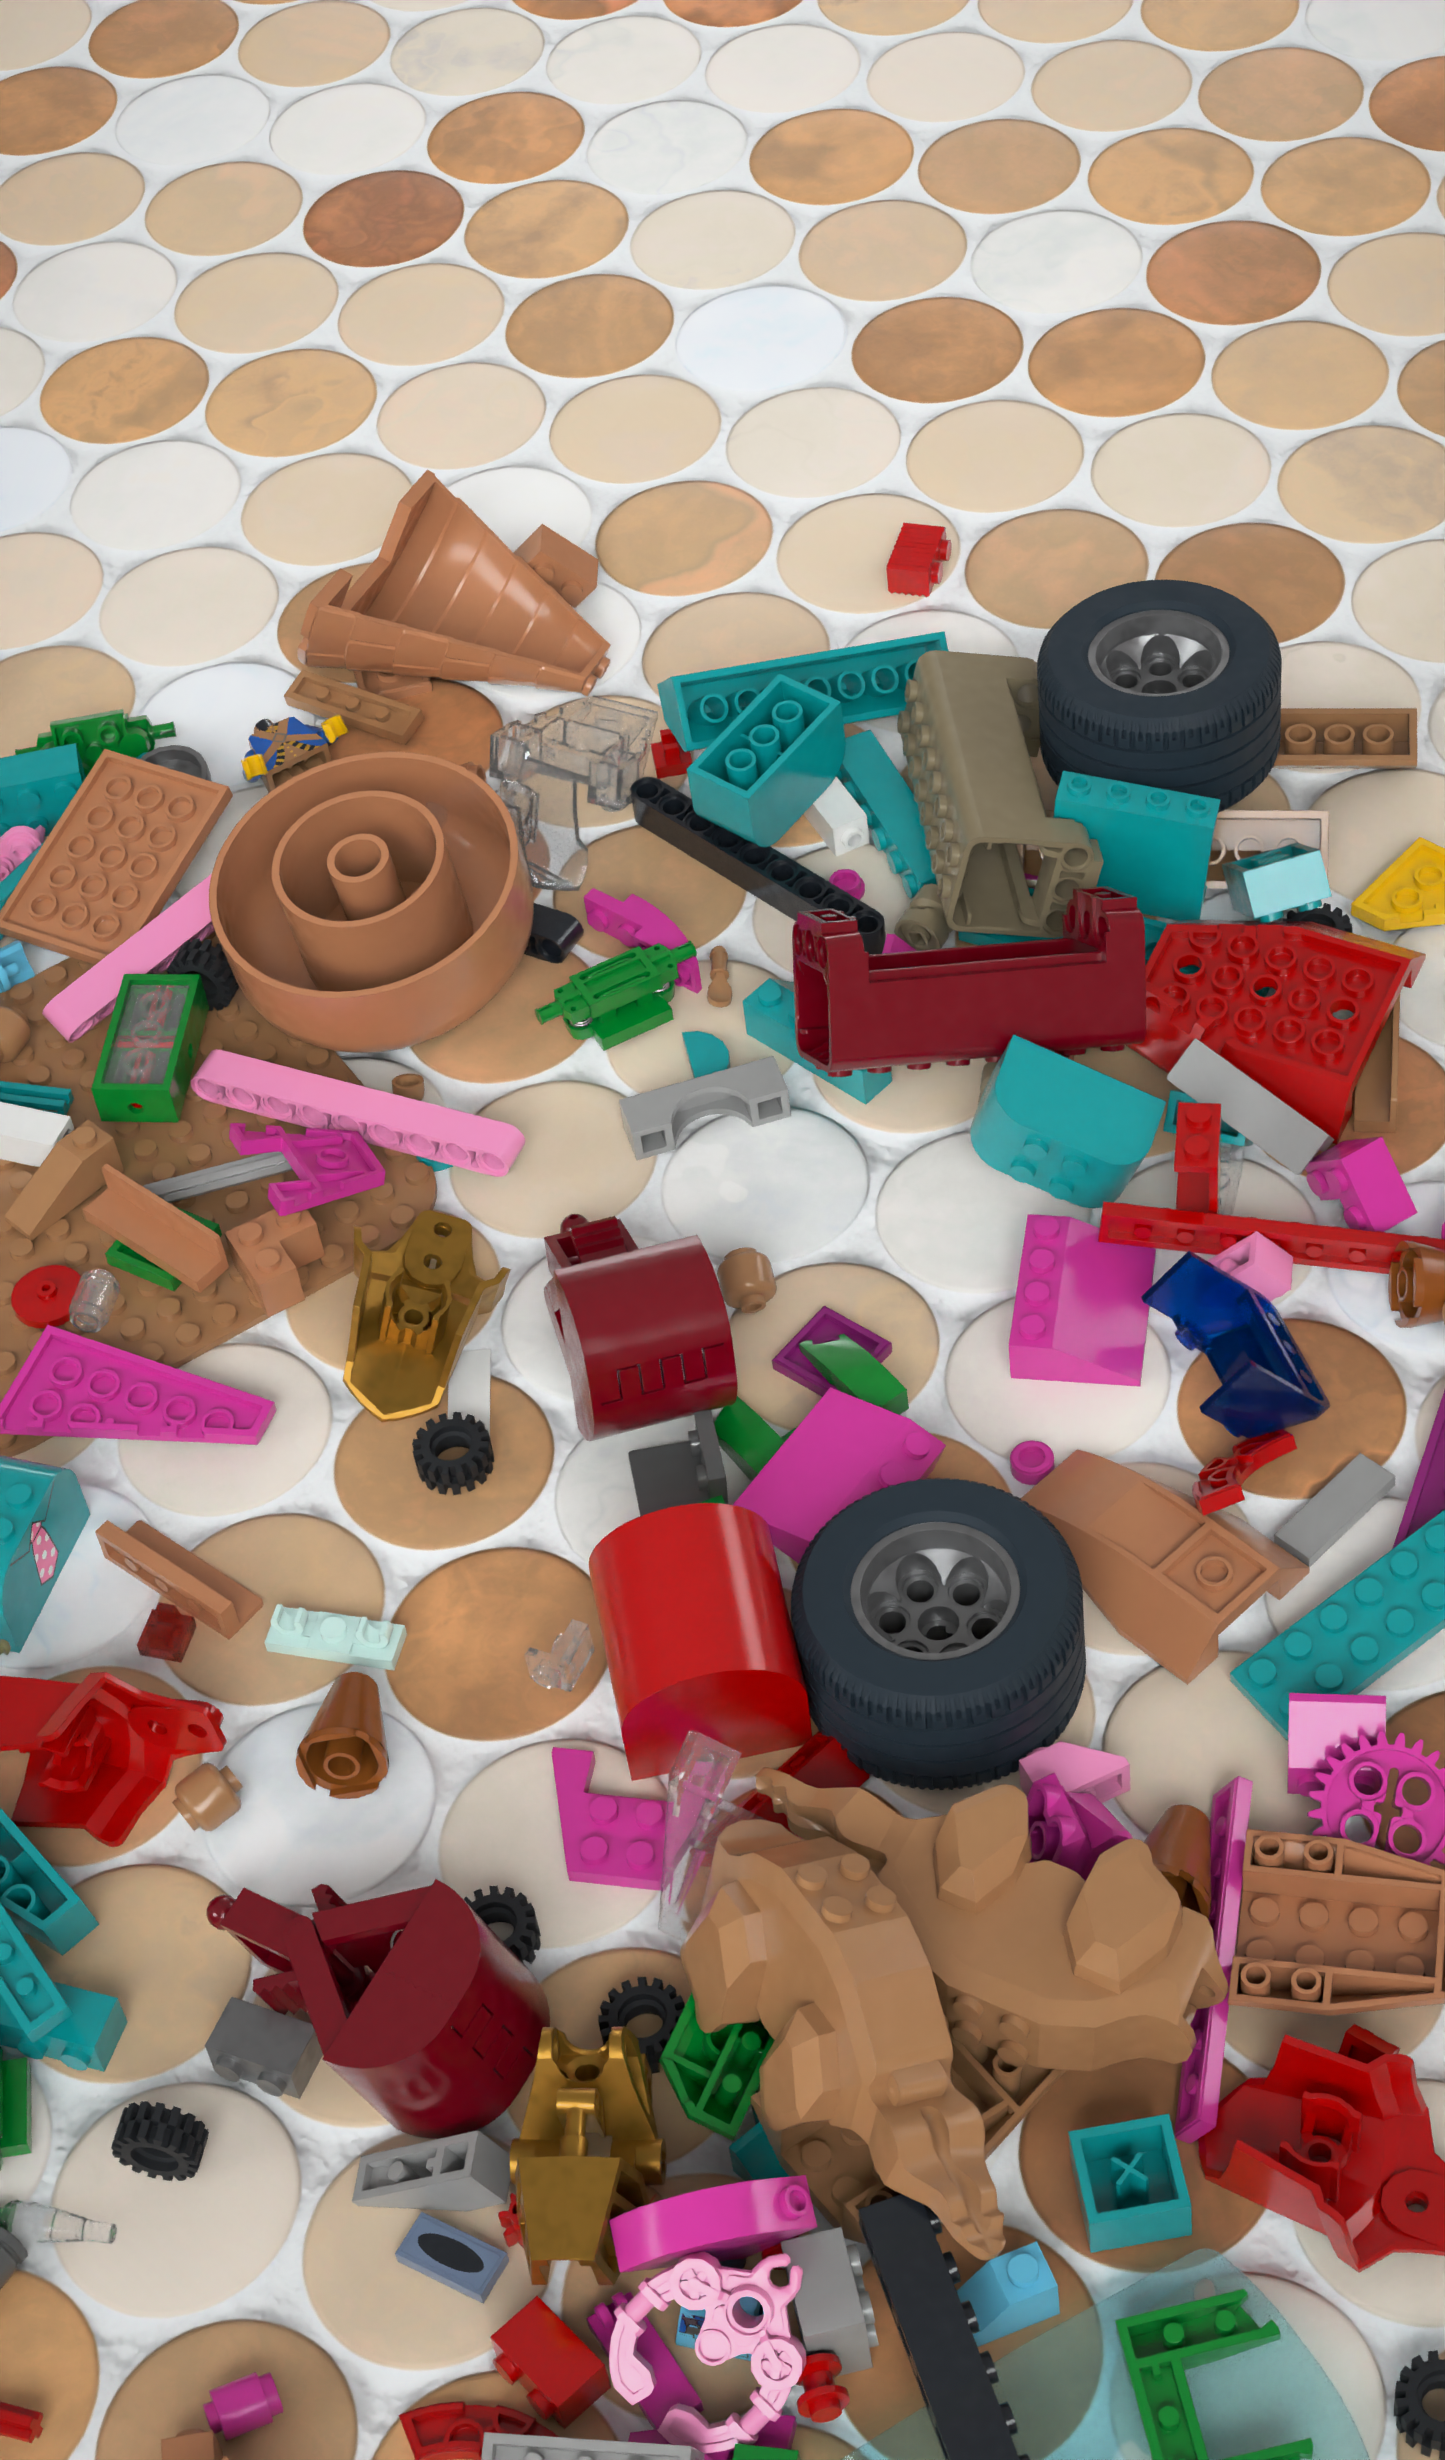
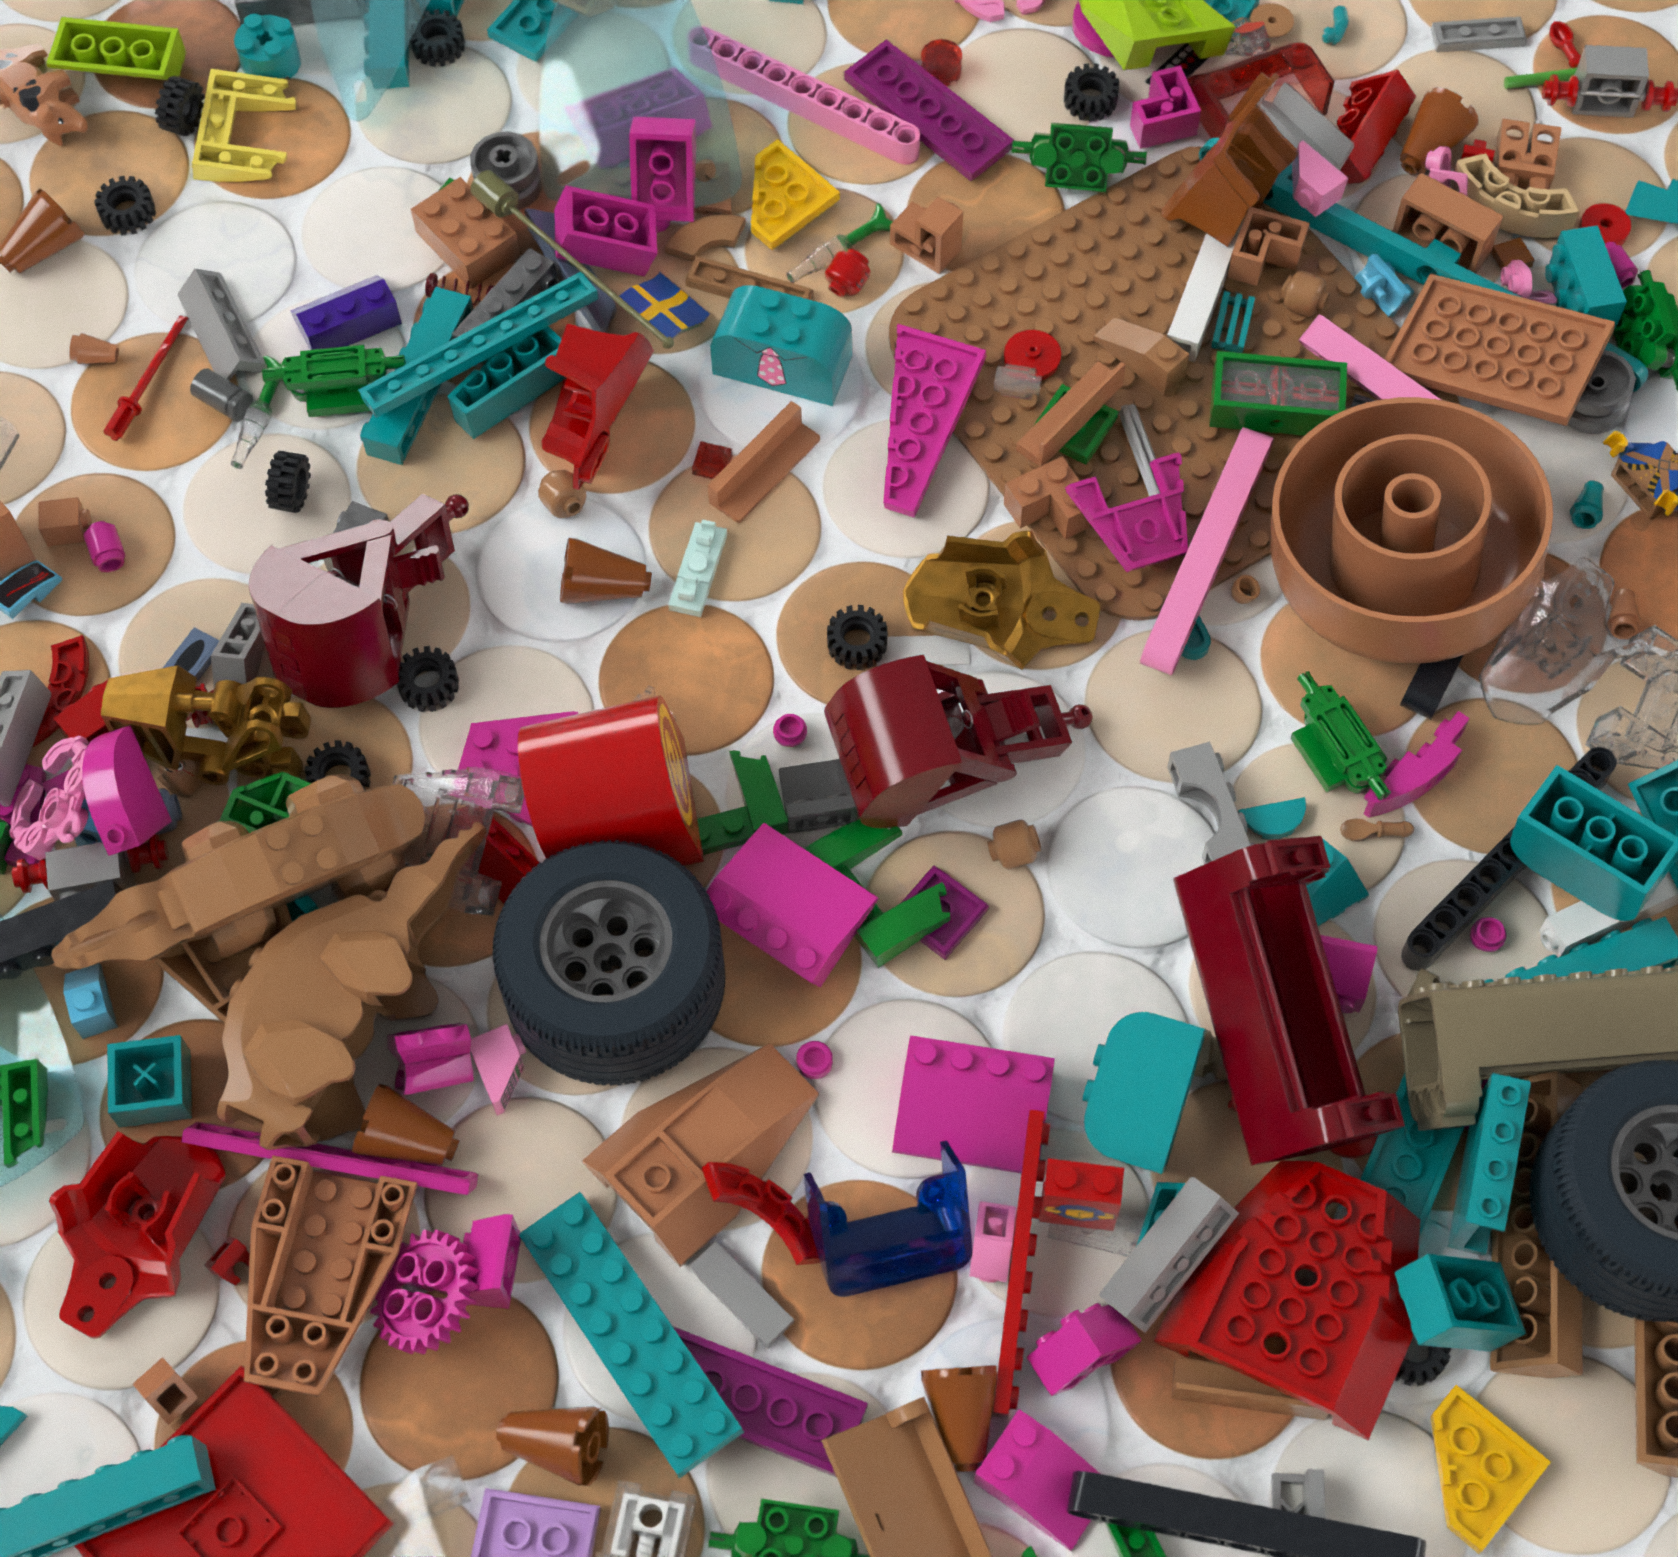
camera: 85 degrees right, 15 degrees up
(584, 1515) = (790, 730): none -> dark pink plate

